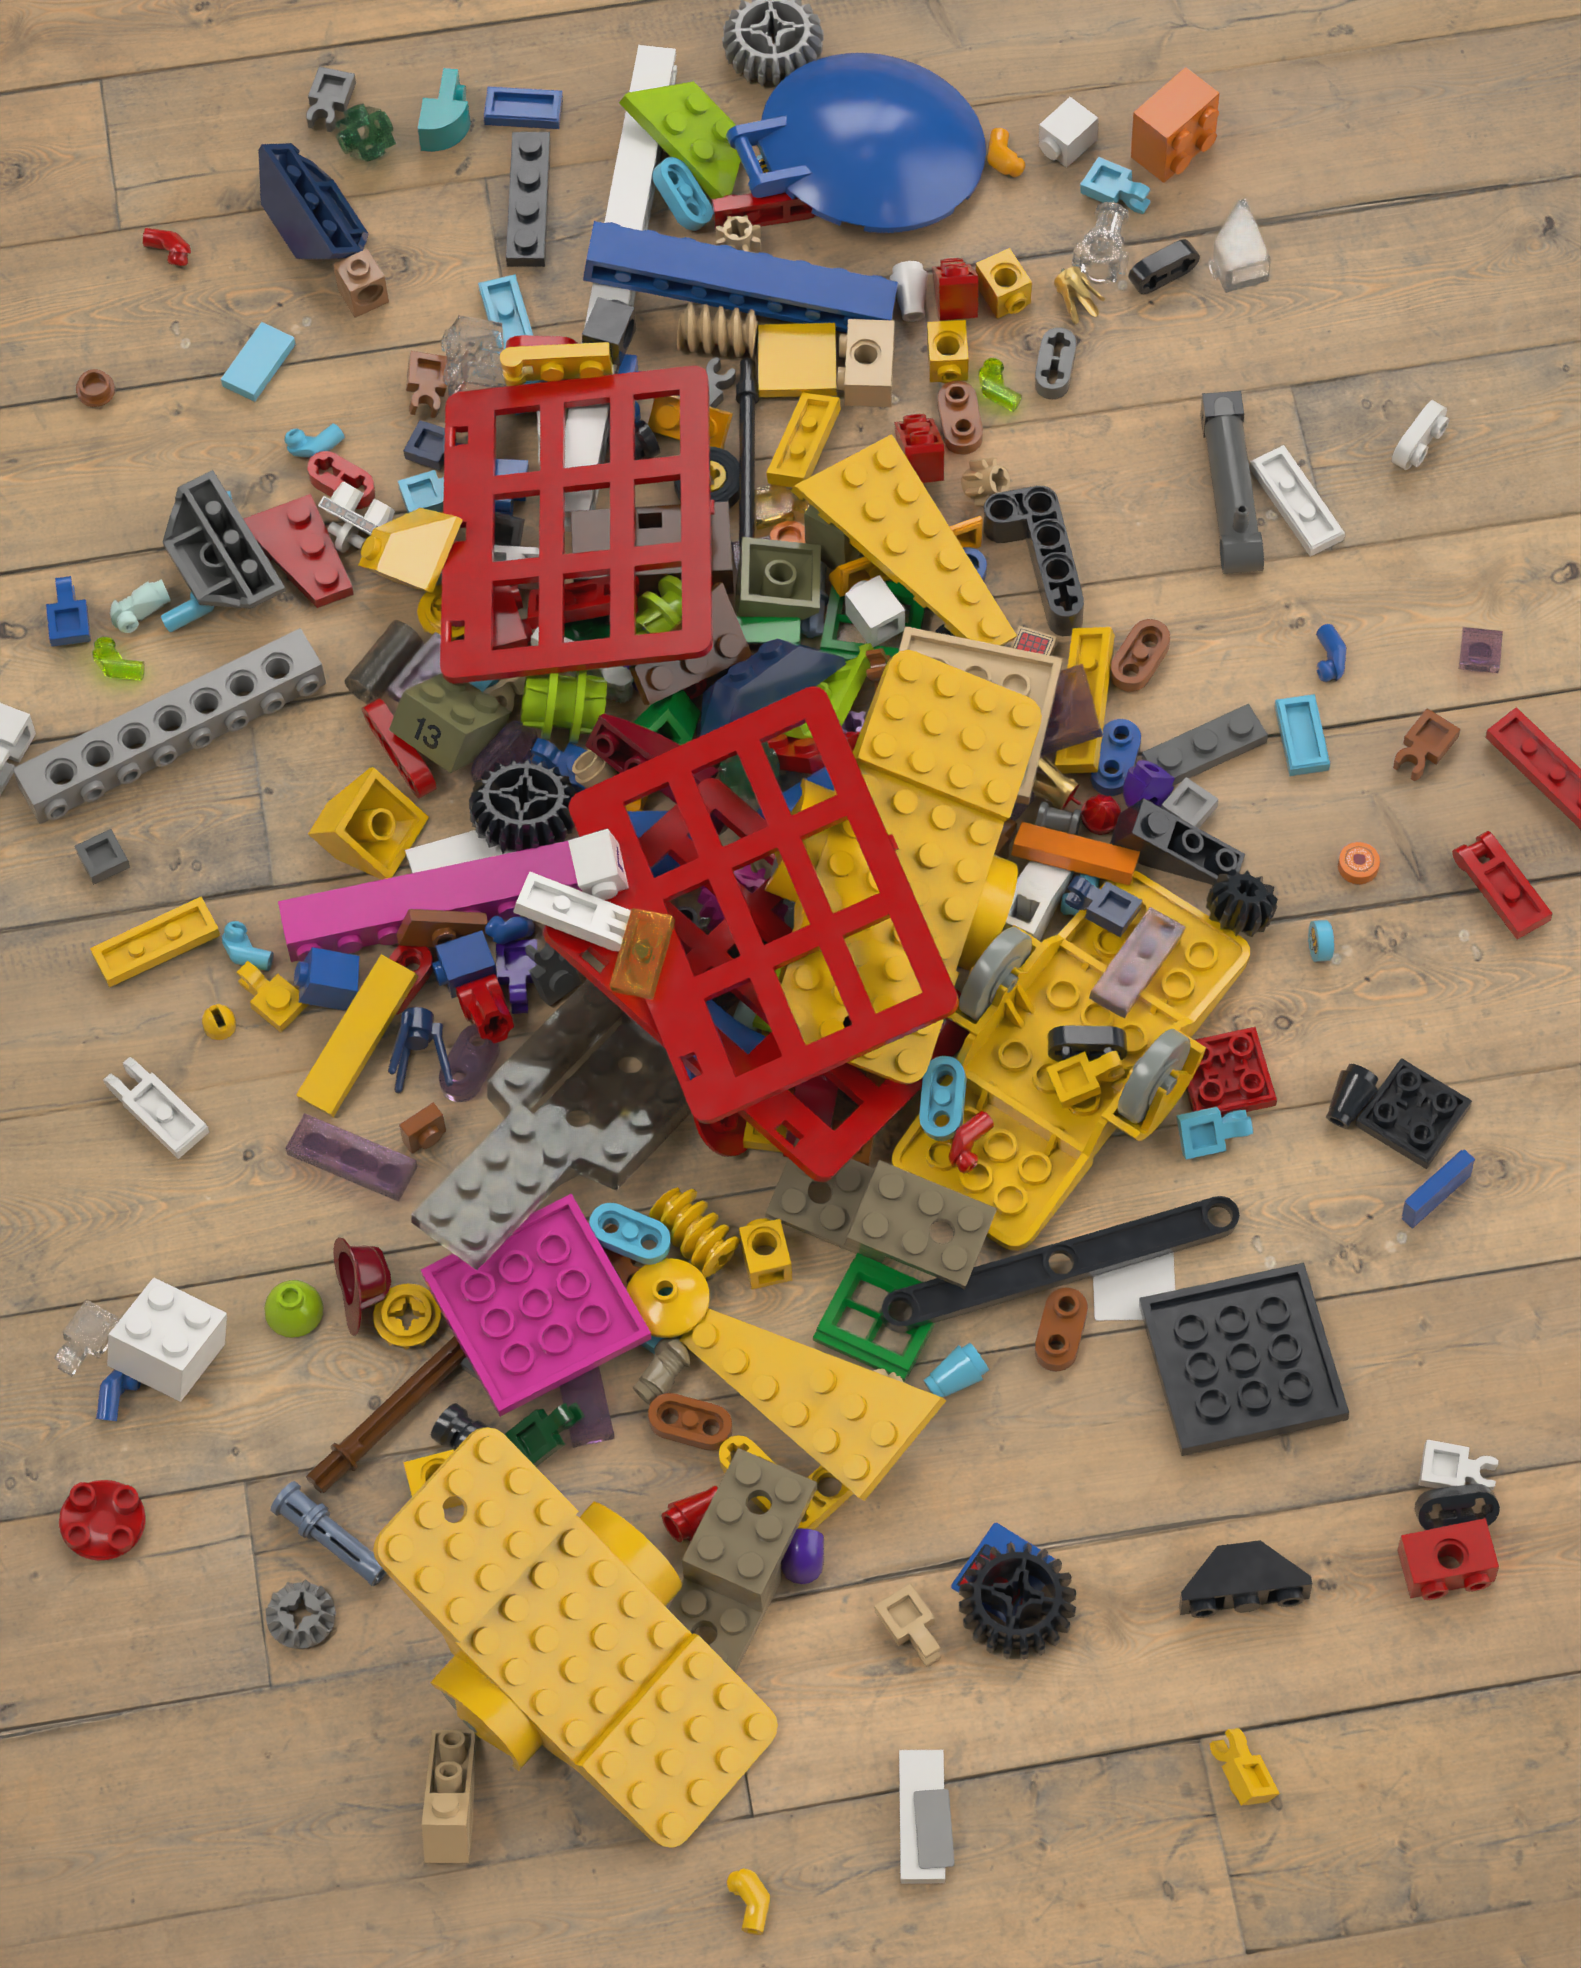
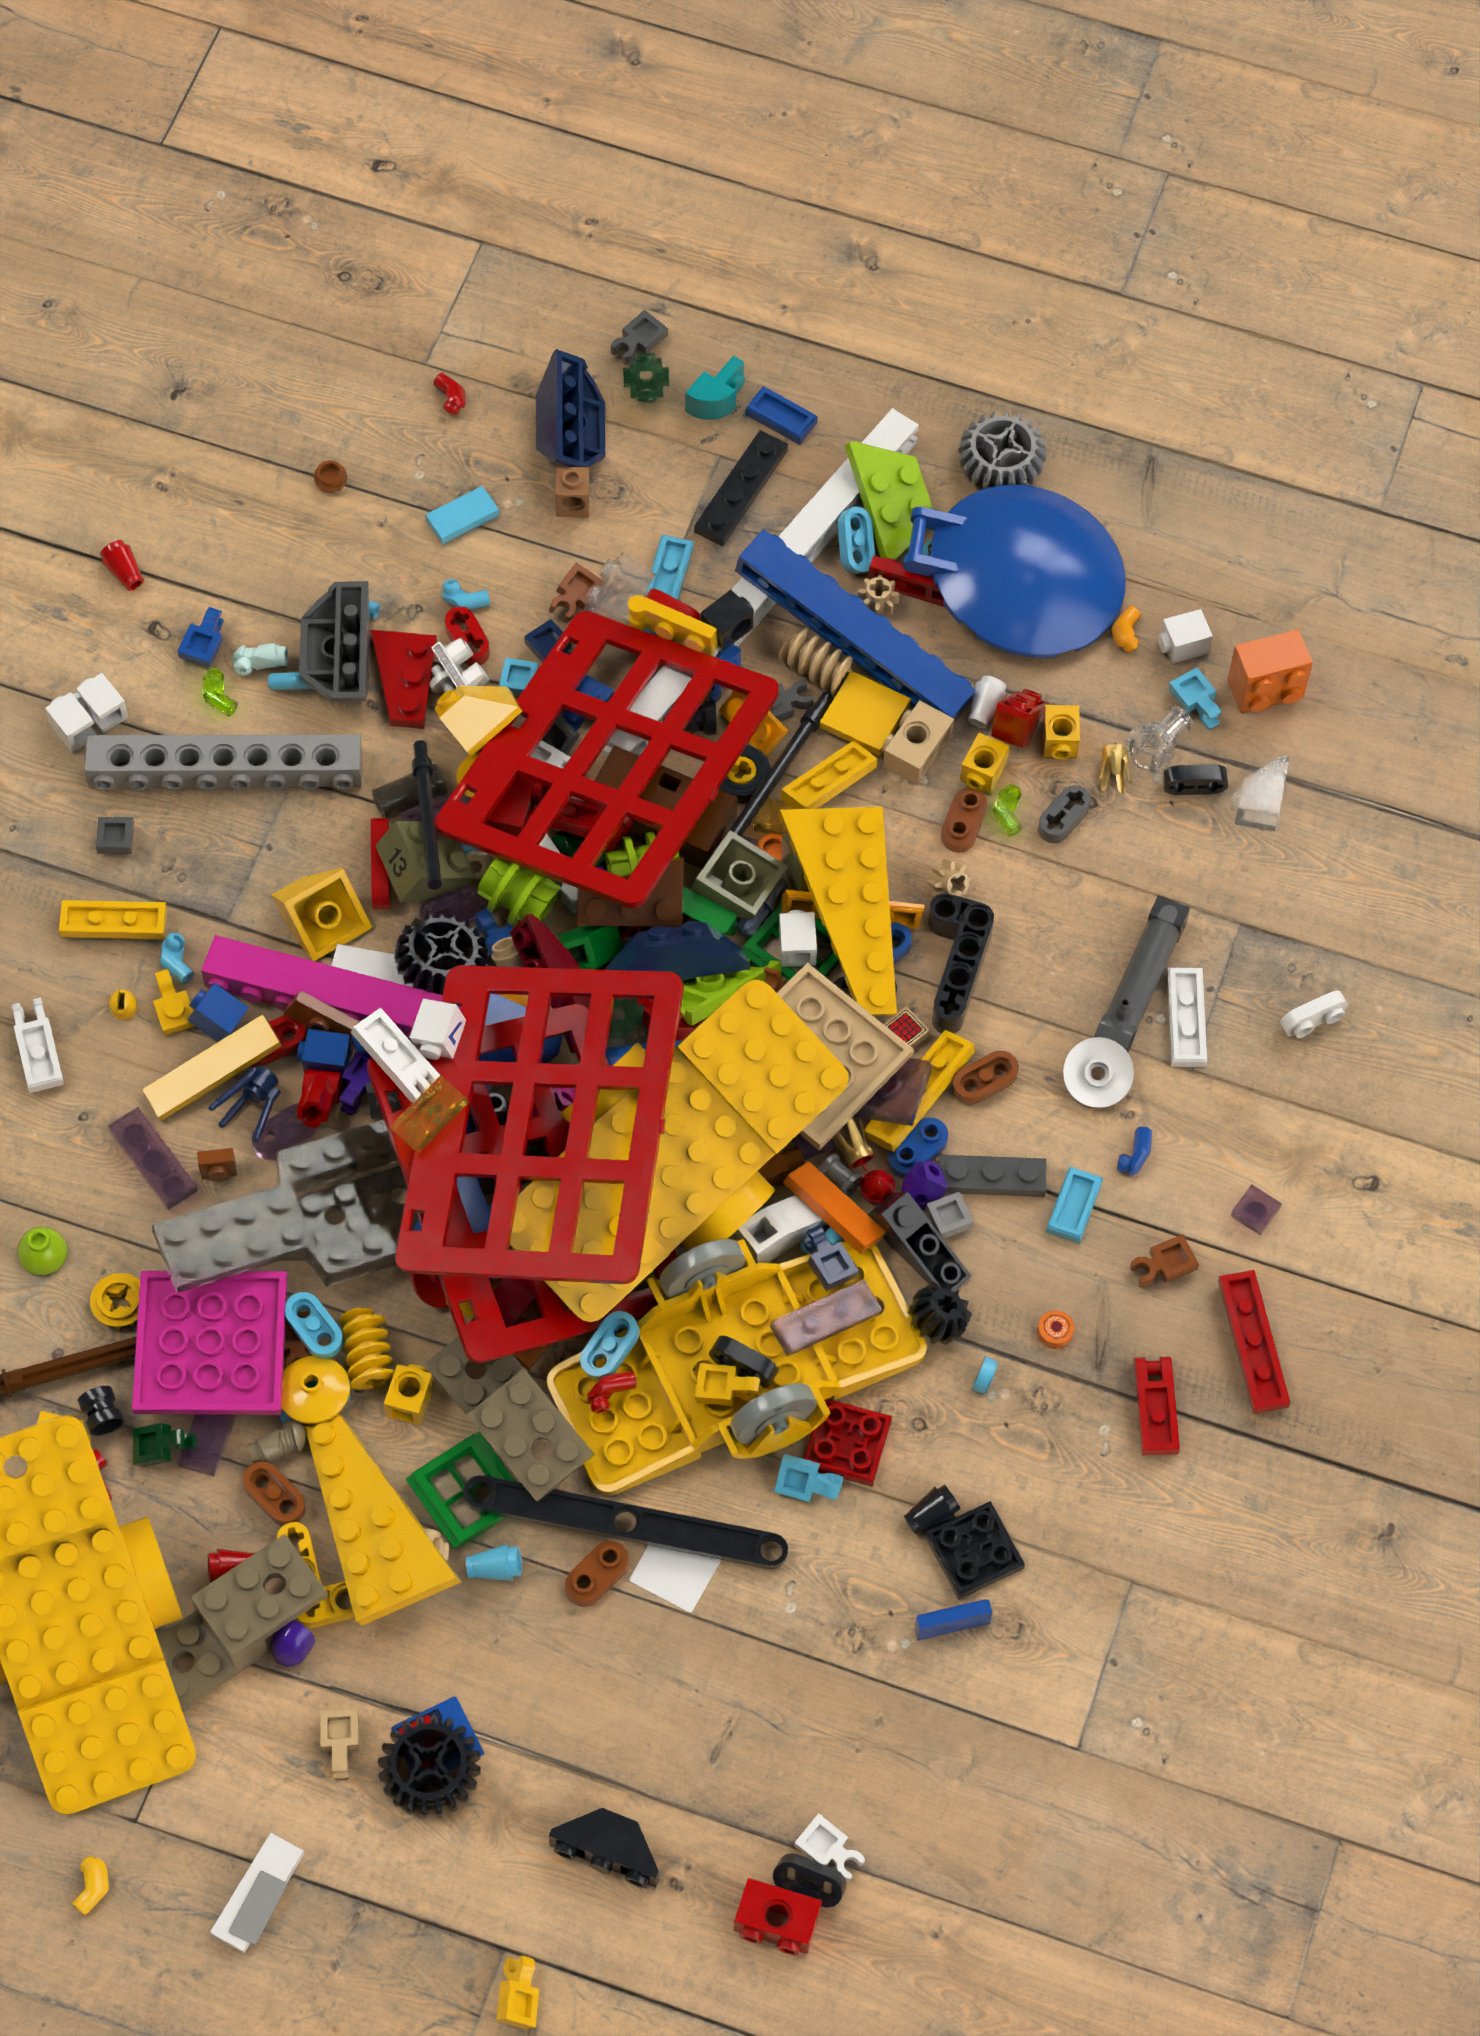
camera: 25 degrees right, 0 degrees up
(362, 1278) = (105, 1253): dark red piece -> none
(392, 632) = (422, 771): none -> black bar
(922, 446) = (912, 829): red slope -> none
(1243, 1359) = (720, 1672): black plate -> none
(1264, 585) = (1111, 1059): none -> white dish

